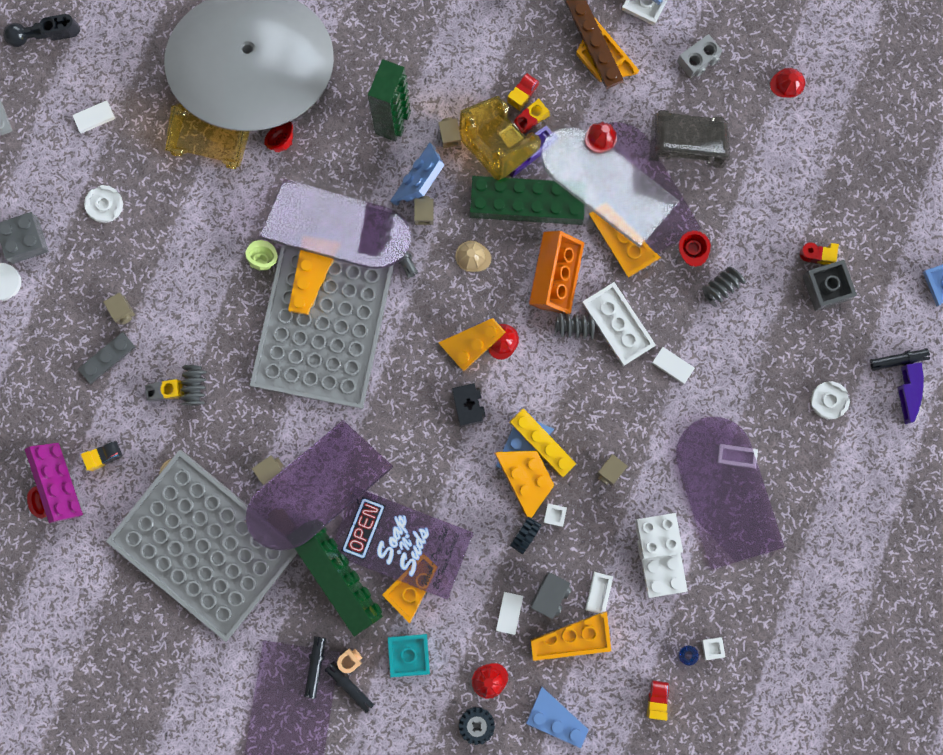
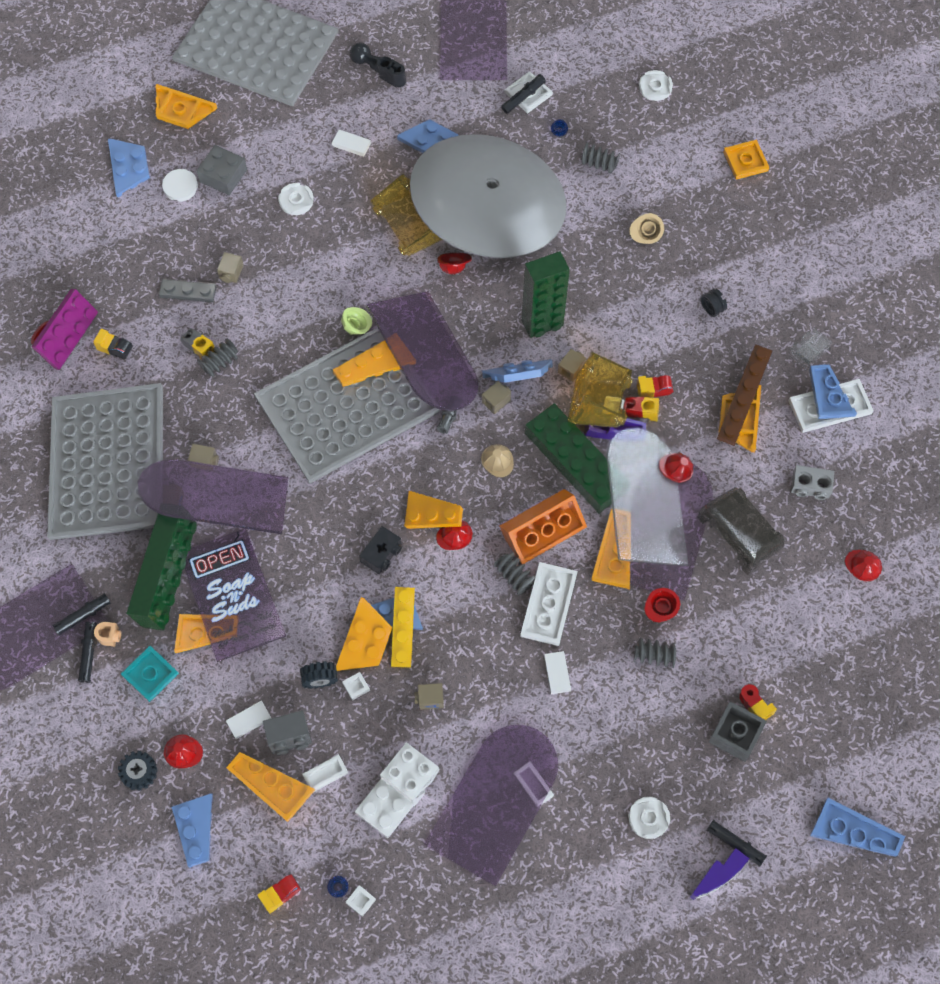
camera: 50 degrees right, 15 degrees down
(146, 54) = (425, 135): none -> medium blue wing

